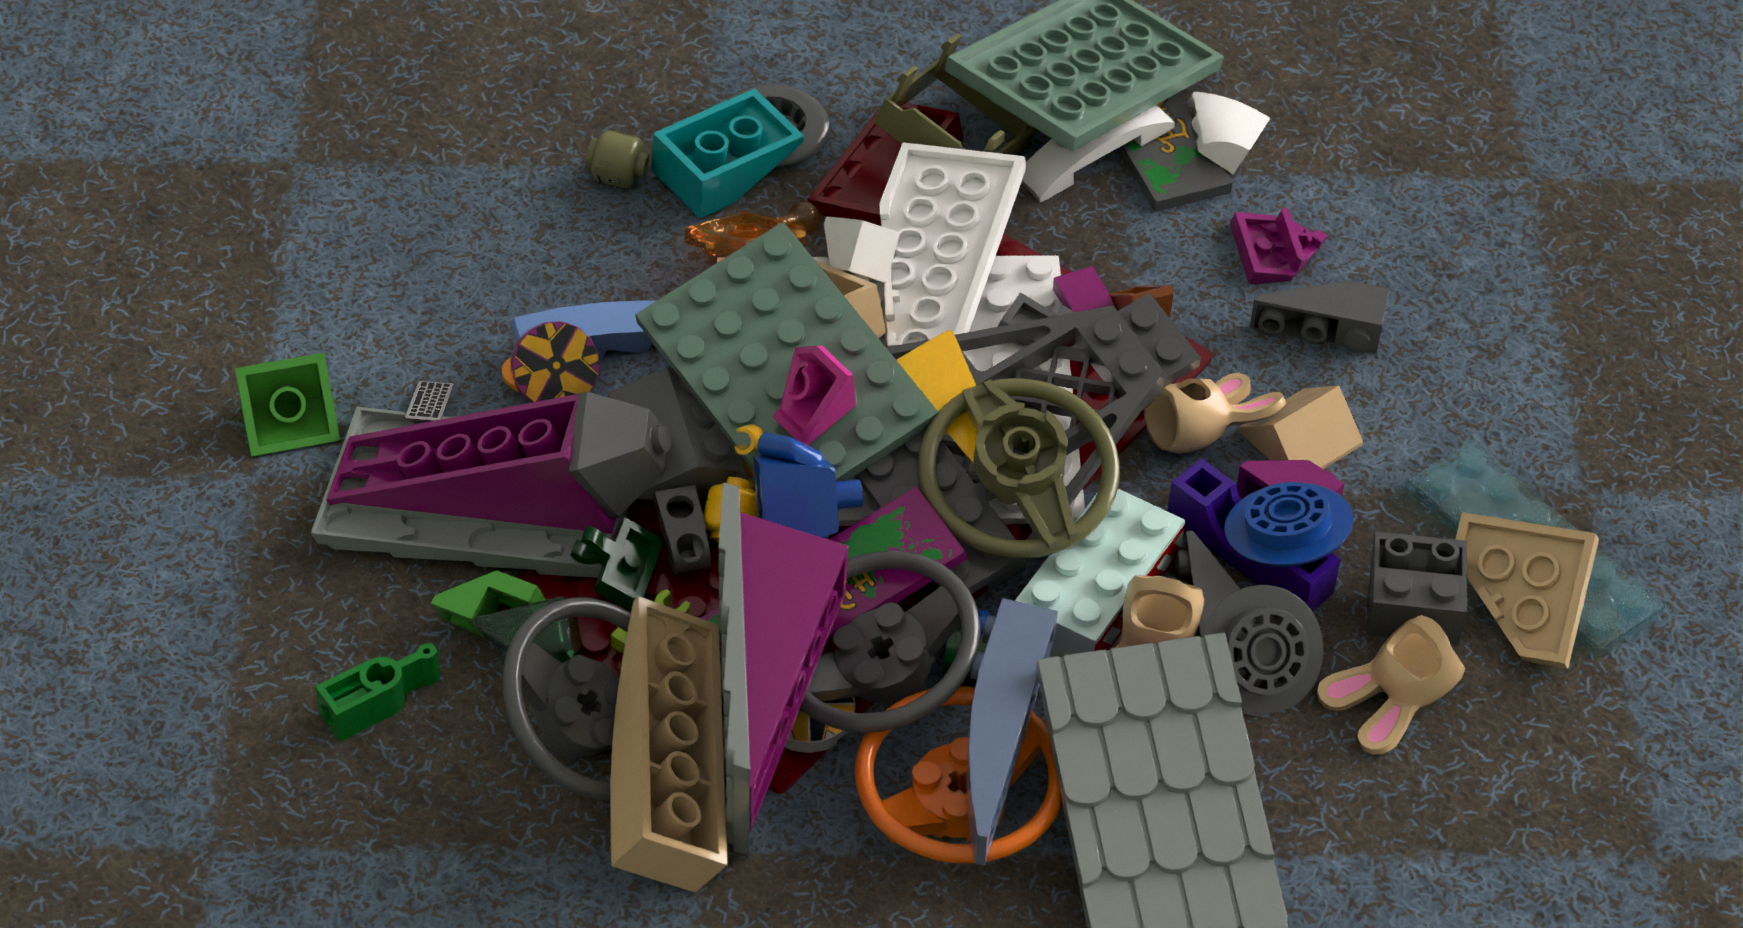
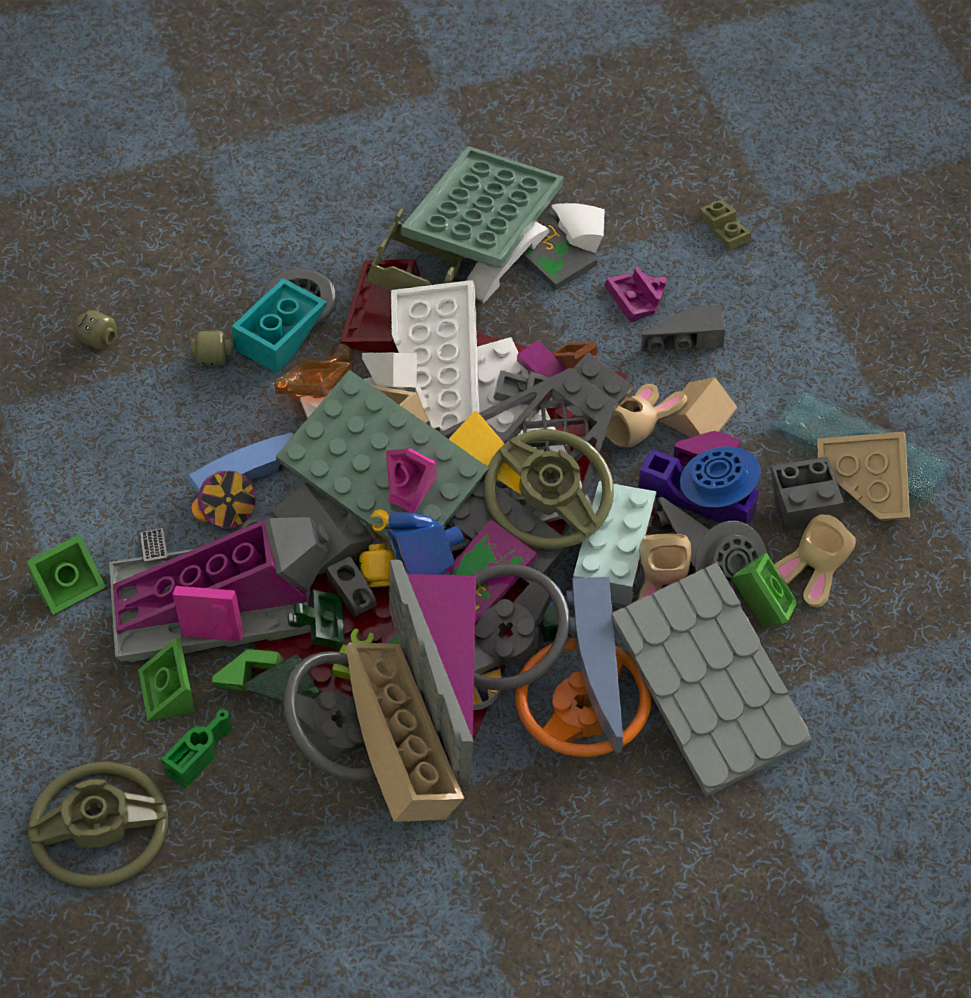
camera: 15 degrees left, 5 degrees up
(195, 740) = (116, 813): none -> olive piece
(371, 590) = (166, 683): none -> bright green slope
(458, 505) = (208, 613): none -> dark pink plate
(465, 93) = (96, 329): none -> olive head
(1299, 705) = (765, 591): none -> bright green slope
(1446, 185) = (724, 224): none -> olive slope

